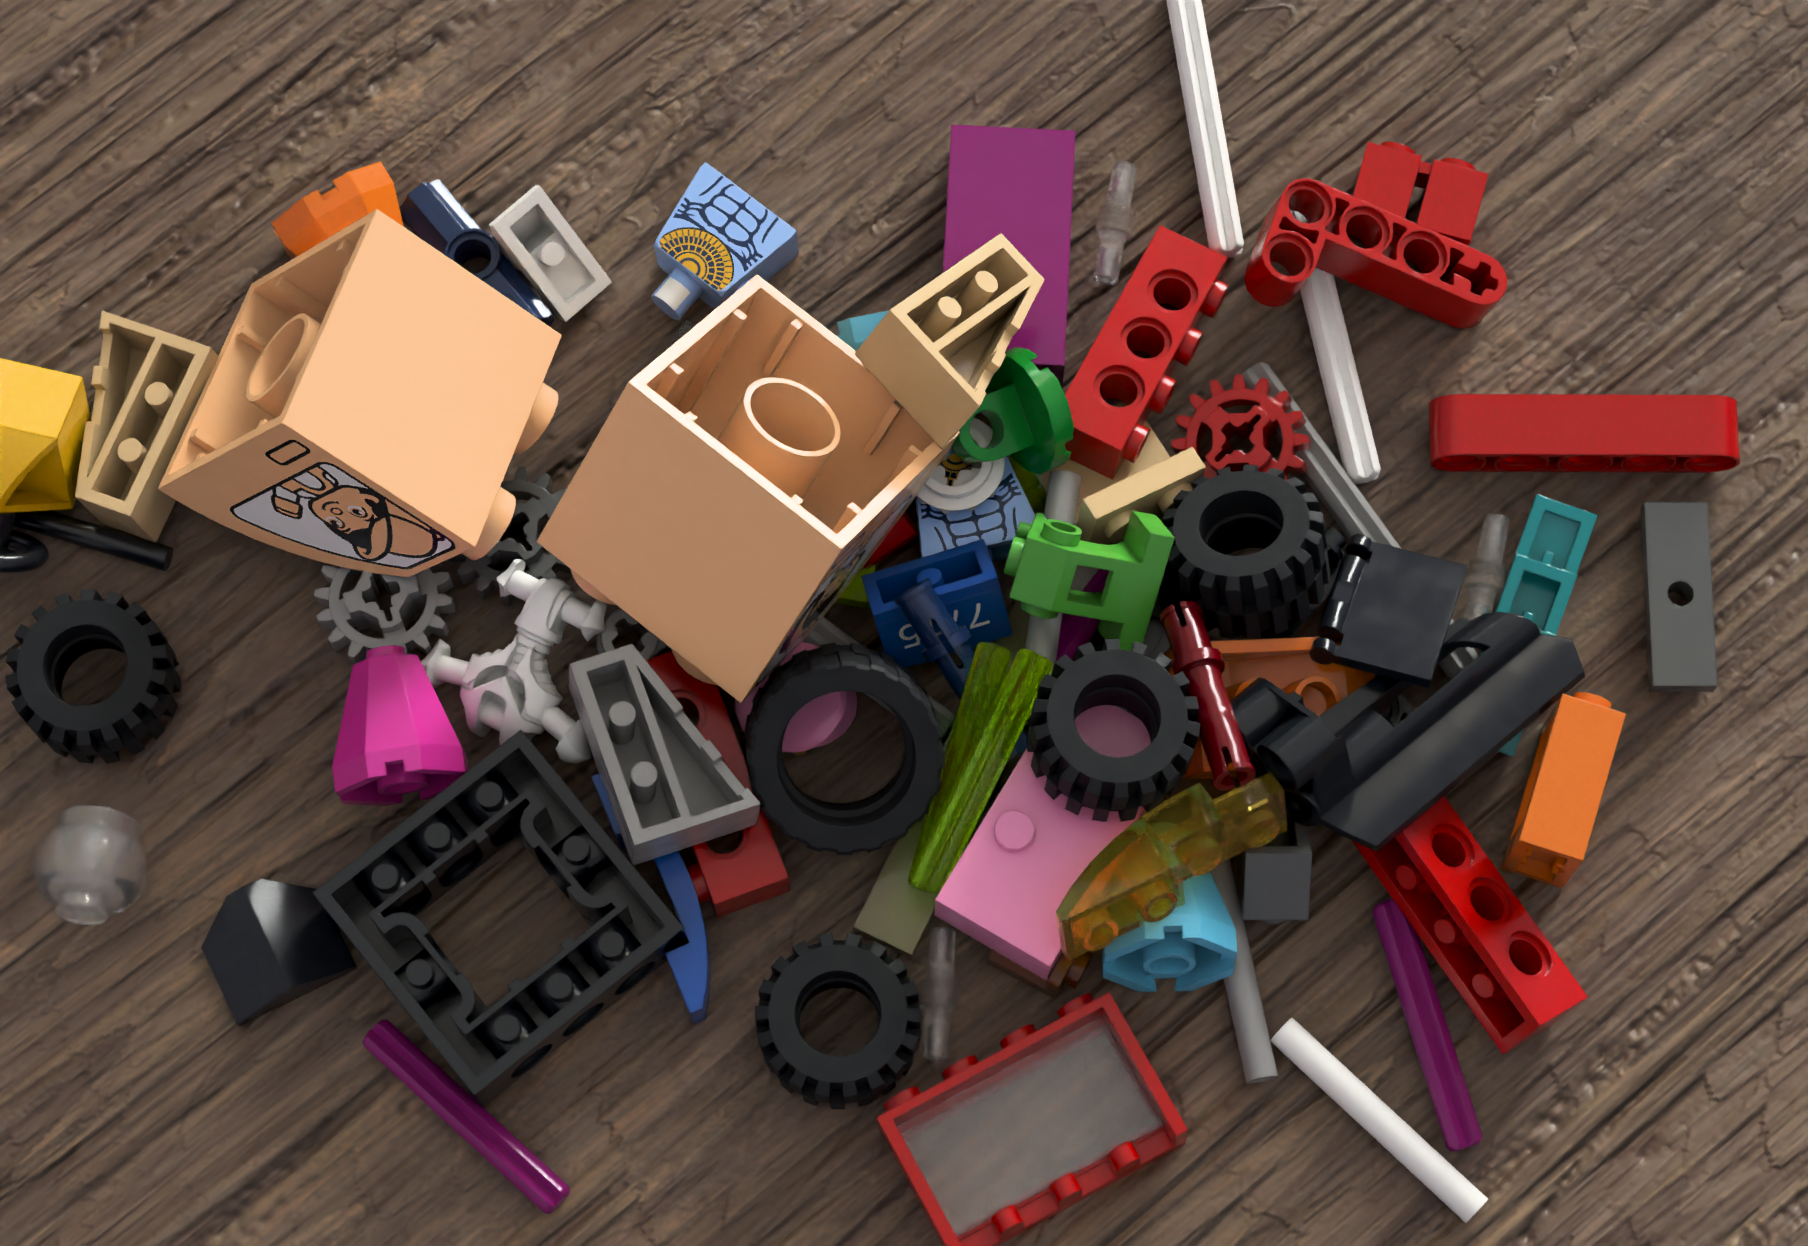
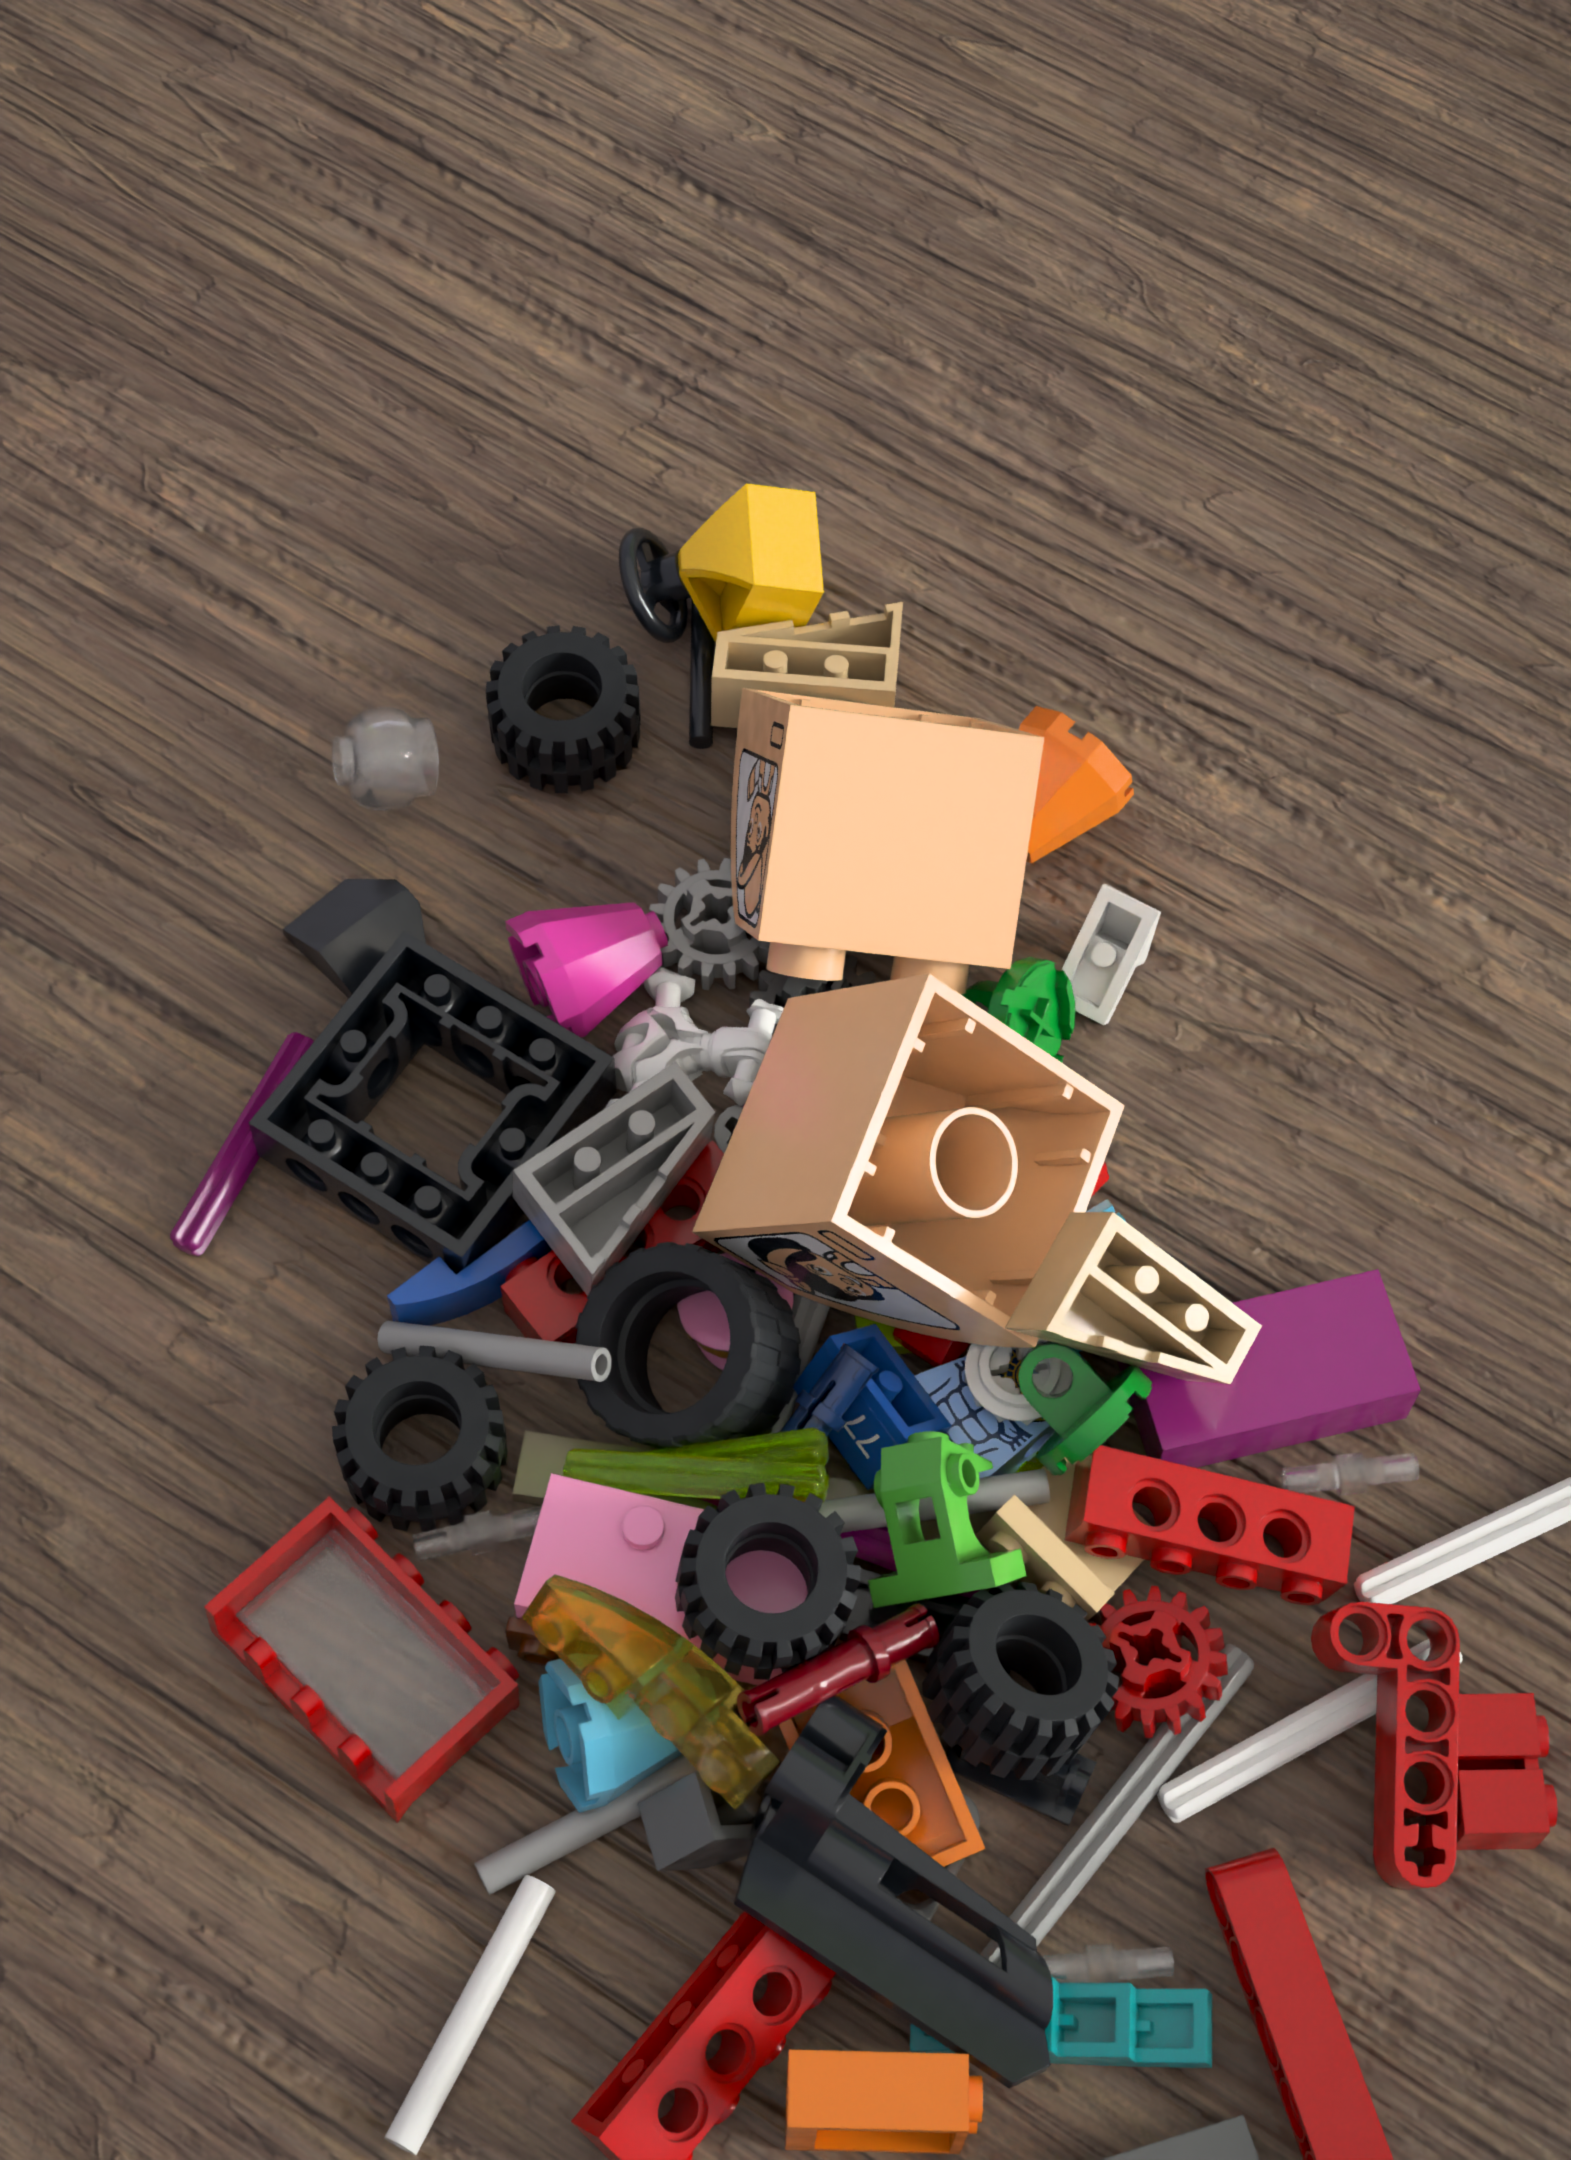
camera: 70 degrees right, 10 degrees down
(445, 225) = (1099, 859): dark blue piece -> none
(591, 351) = (1031, 1001): none -> green tile
(718, 244) = (1174, 1104): light blue torso -> none
(782, 925) = (499, 1350): none -> light grey piece
(1388, 611) = (1013, 1858): black piece -> none
(1427, 1028) = (578, 2041): magenta axle -> none

